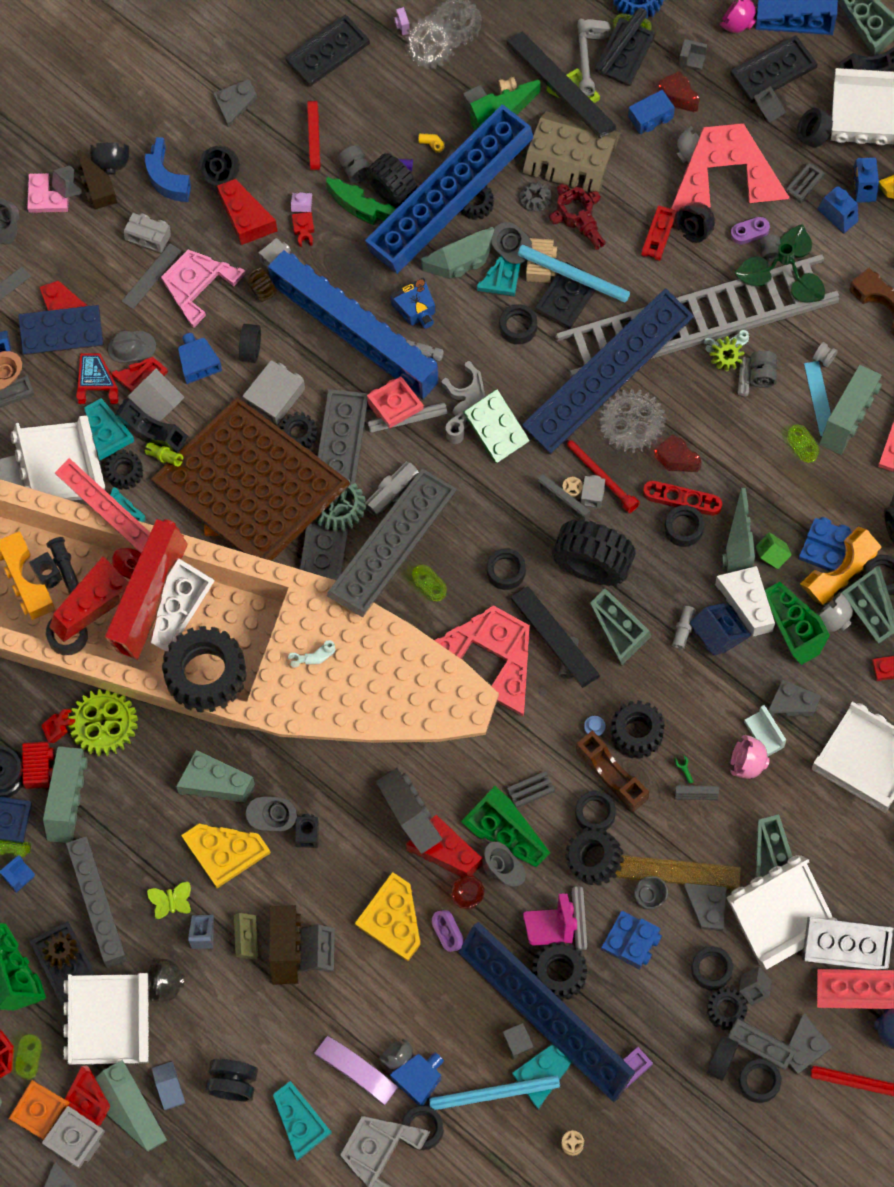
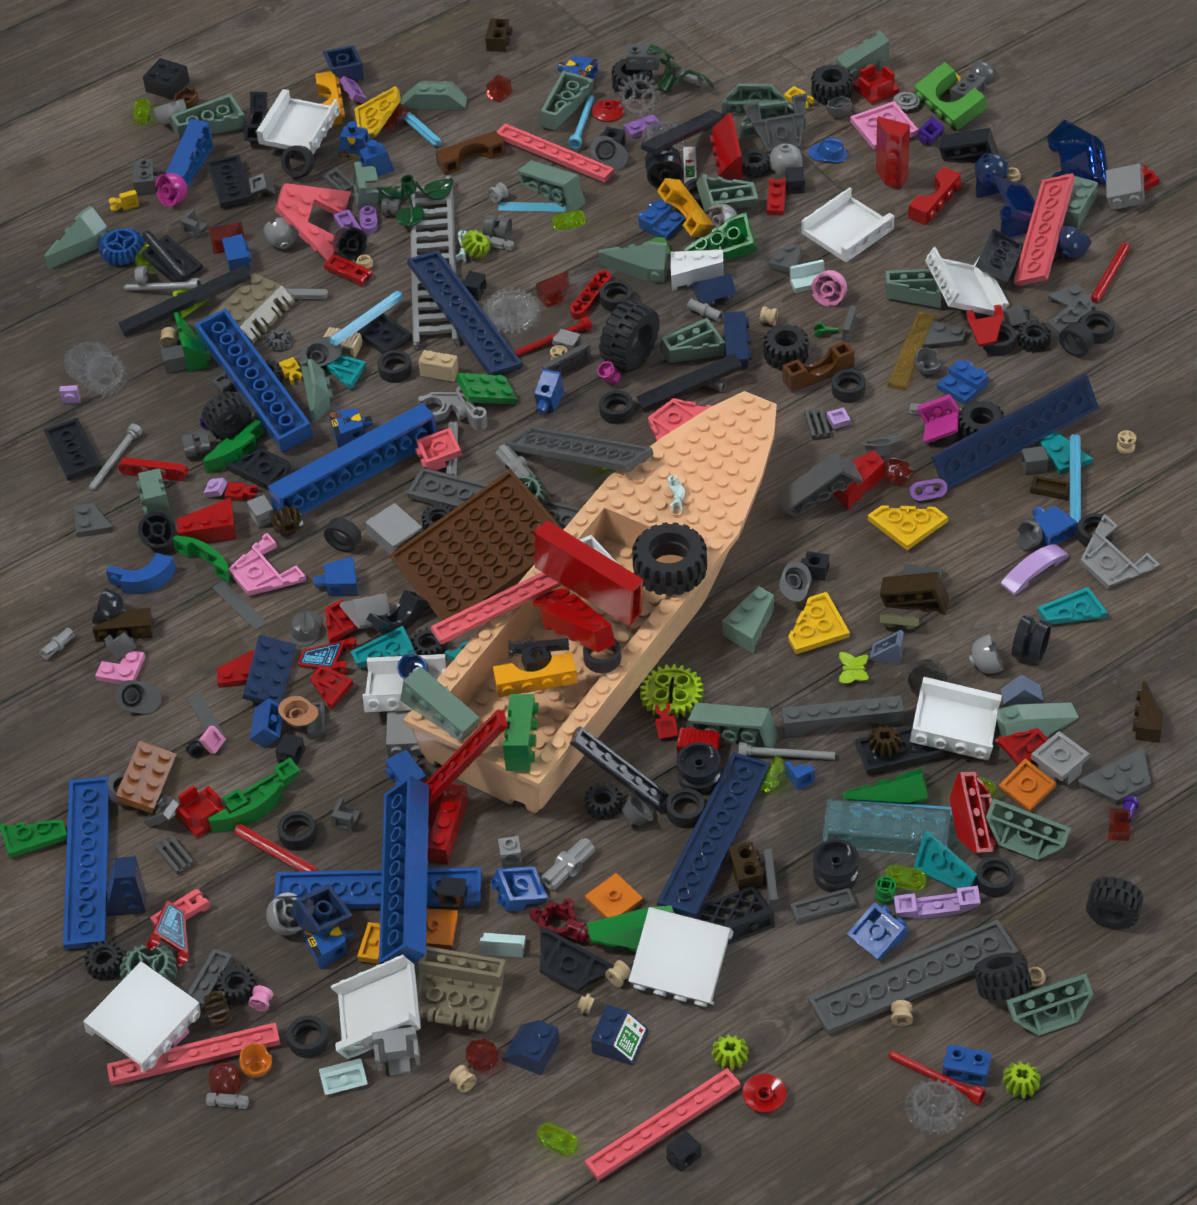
camera: 75 degrees left, 20 degrees down
(37, 814) = (747, 750): none -> light grey piece
(55, 392) = (330, 685): none -> red wing
(63, 126) = (56, 643): none -> light grey pin
(77, 455) = (409, 664): none -> blue hair
(147, 232) = (197, 595): light grey brick -> none
(164, 454) = (426, 611): lime pin -> none
(193, 241) = (189, 546): none -> green slope
(206, 1038) = (986, 655): none -> light grey cylinder
(273, 147) = (153, 492): none -> sand green wedge
(336, 240) = (261, 467): none -> black wing
(362, 99) = (133, 433): none -> light grey piece
(433, 140) = (196, 394): yellow arm -> none
(484, 1066) = (1050, 487): none -> dark brown tile
(491, 219) = (291, 370): none -> yellow plate
(500, 821) = (847, 438): green wedge -> none
(504, 492) = (548, 391): none -> blue torso
(524, 368) = (438, 365): none -> tan brick
(540, 811) = (838, 418): none -> lavender plate
(546, 545) = (609, 373): none -> dark pink wheel
(584, 220) = (315, 310): dark red piece -> none
(596, 724) = (773, 376): medium blue plate -> none
(609, 863) = (889, 373): black tyre -> none
(612, 200) = (308, 293): none -> light grey axle
(635, 672) = (736, 336): none -> dark blue wedge
(664, 370) = (476, 284): none -> black brick
(676, 247) = (365, 261): none -> tan plate
(688, 700) = (768, 316): none -> tan wheel
(718, 950) = (986, 329): none -> red flag
(733, 211) = (345, 219): none -> medium lavender plate
(788, 208) = (361, 176): none -> sand green panel

